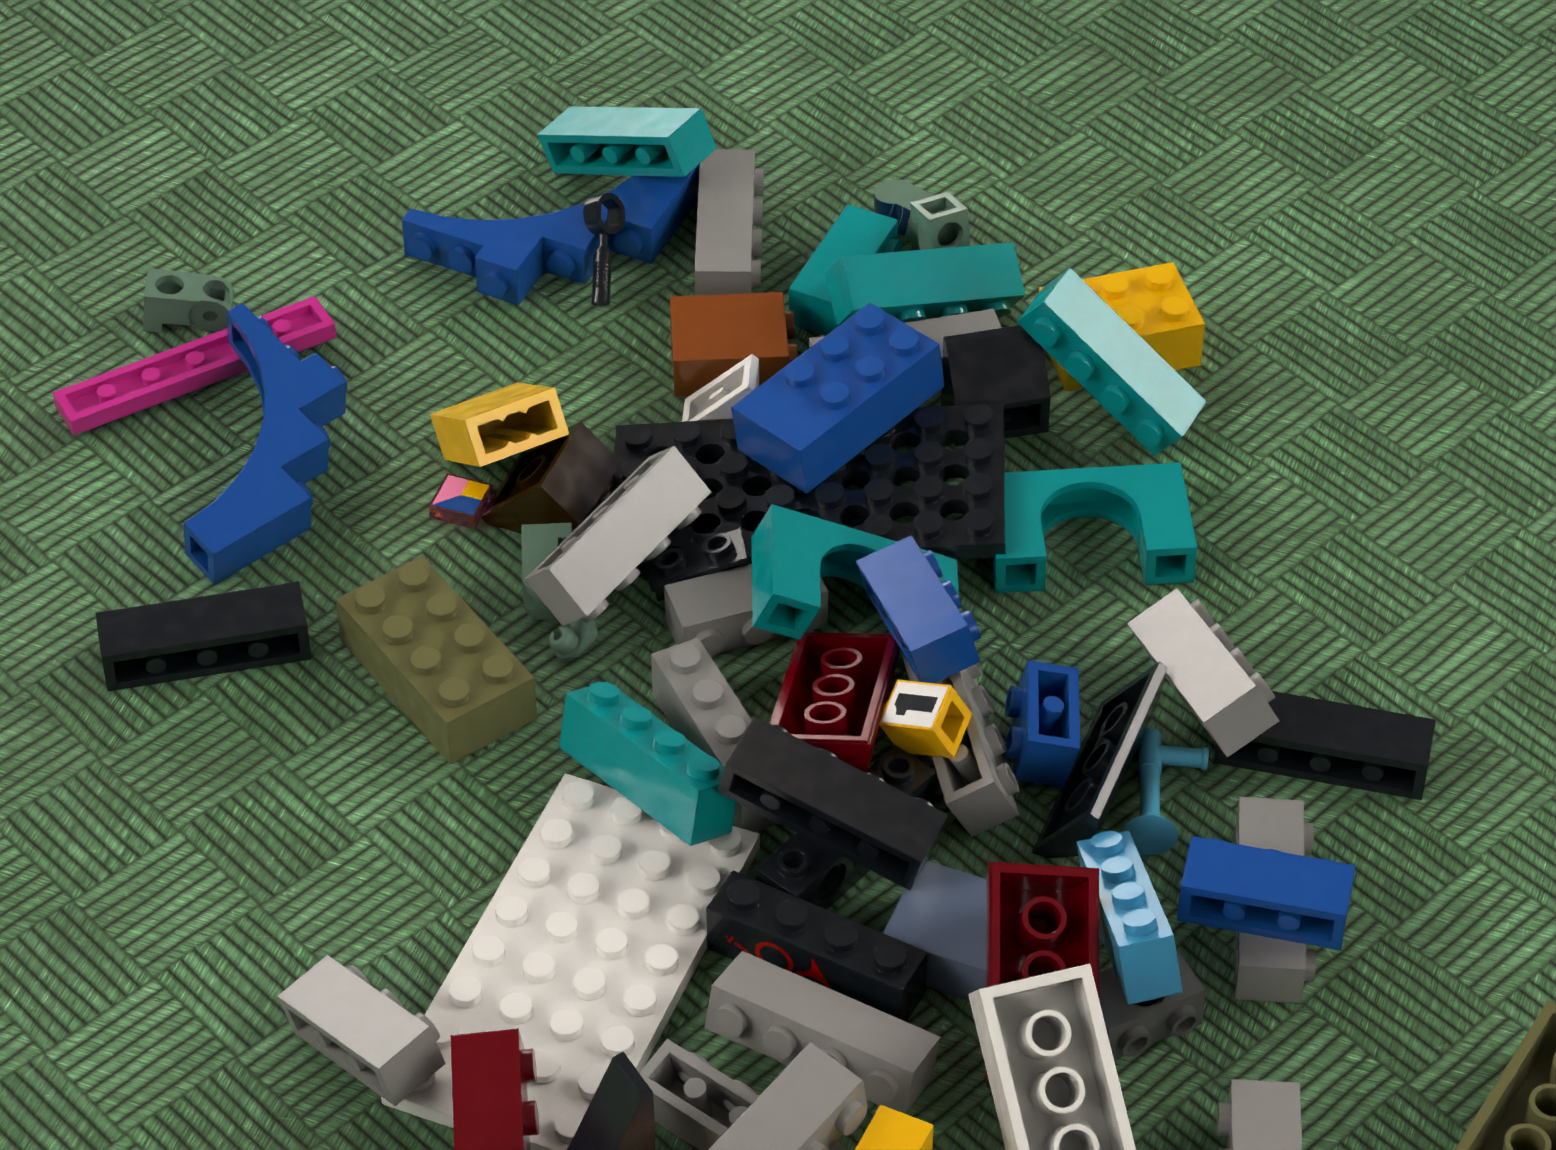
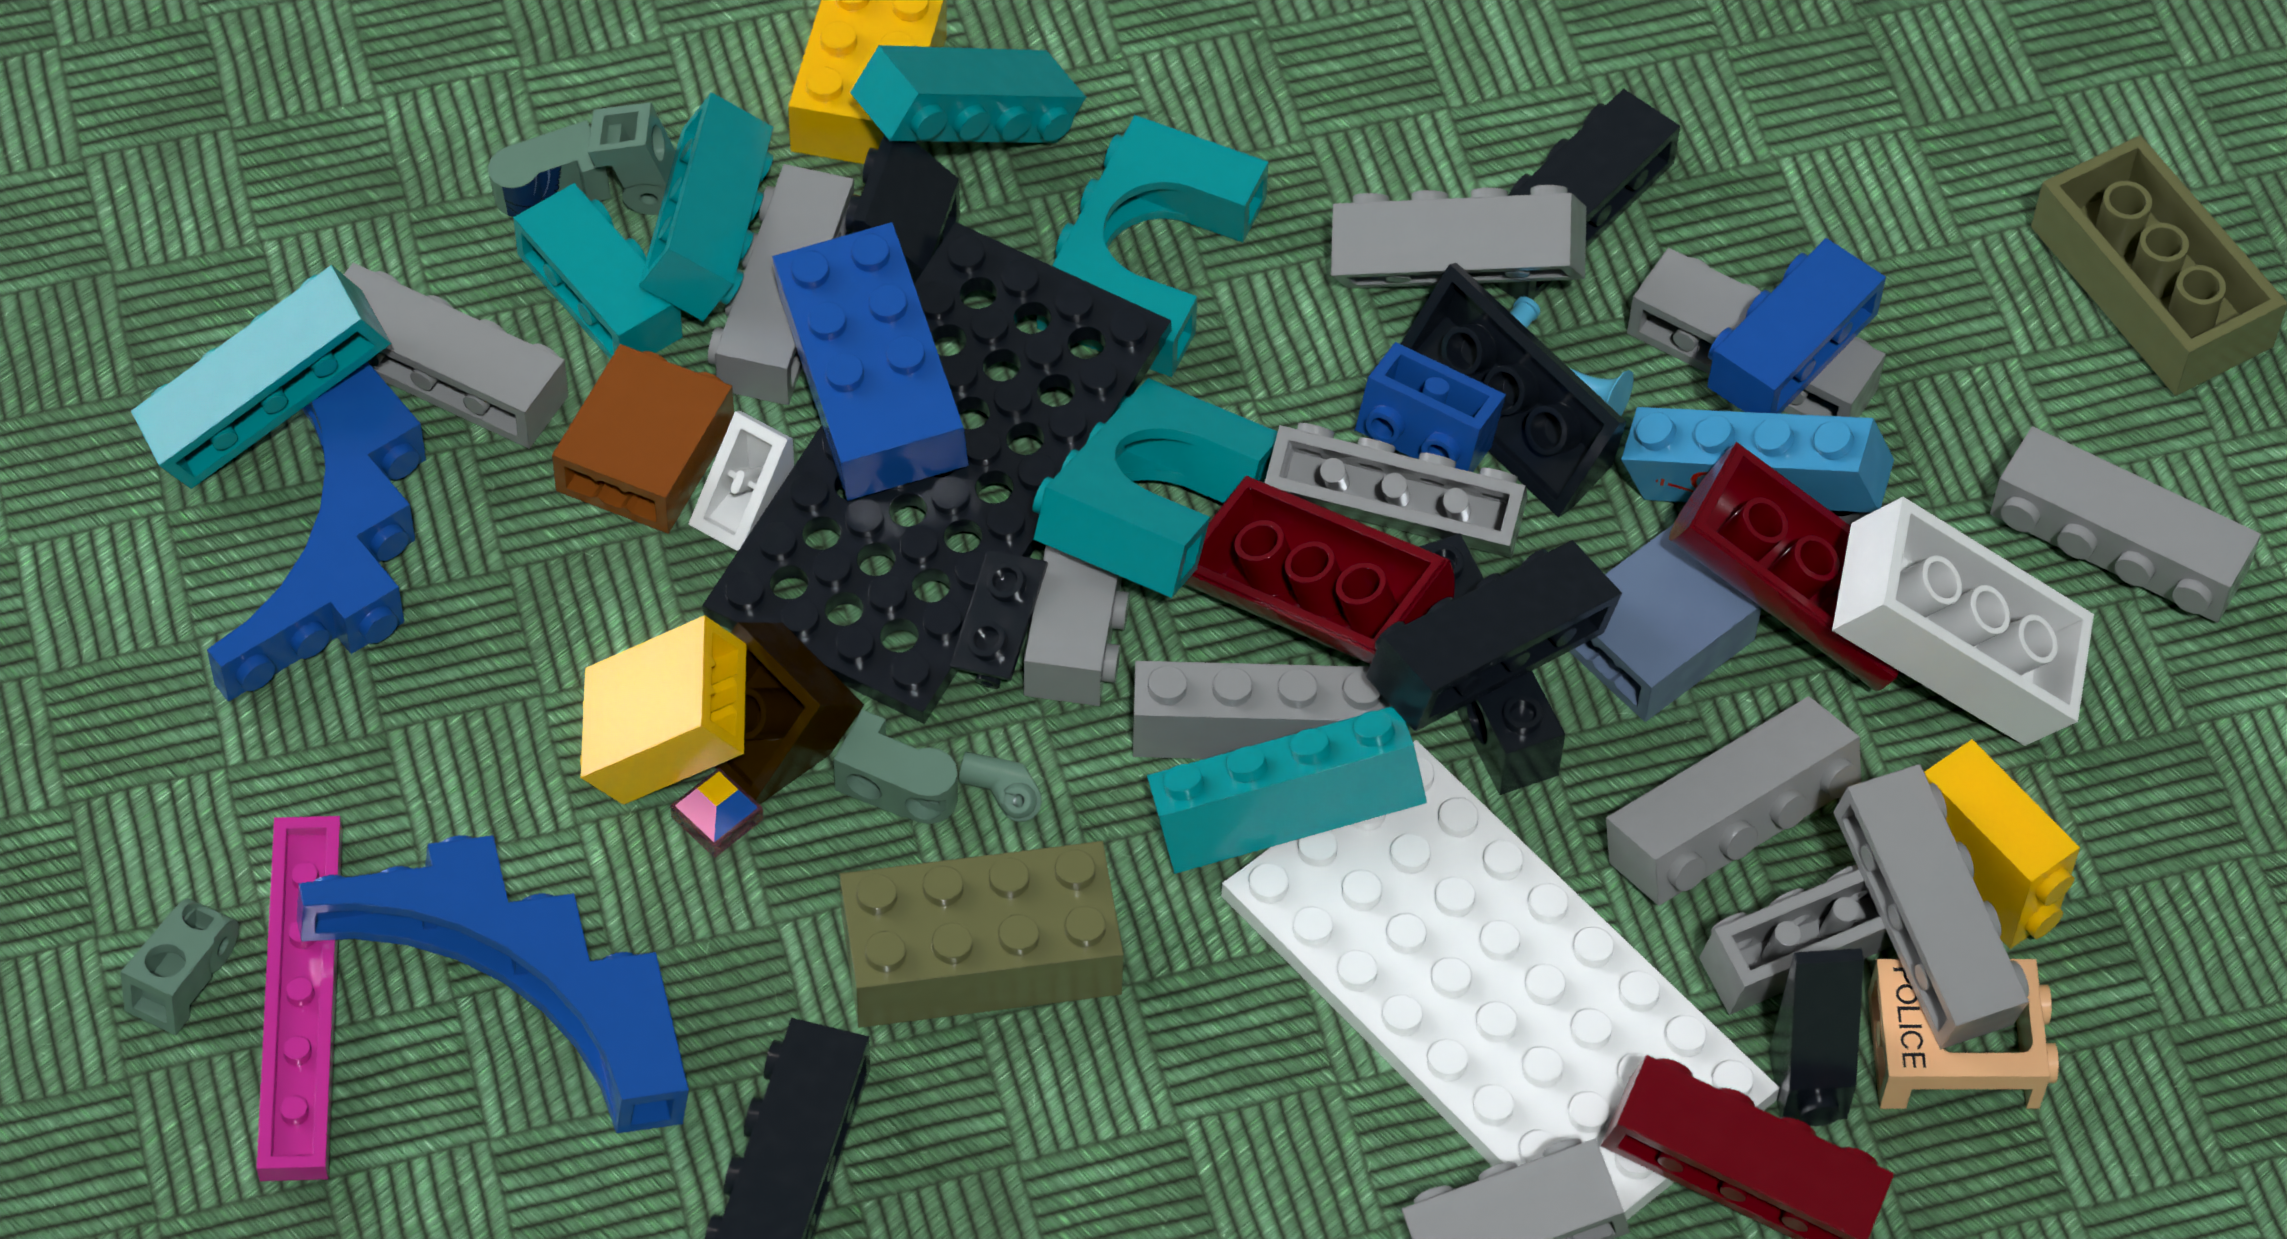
camera: 65 degrees left, 10 degrees up
(602, 256) = (389, 462): black piece -> none
(619, 537) = (944, 665): light grey brick -> none
(816, 945) = (1618, 756): black brick -> none
(920, 610) = (1261, 433): brick -> none
(925, 718) = (1408, 500): yellow brick -> none

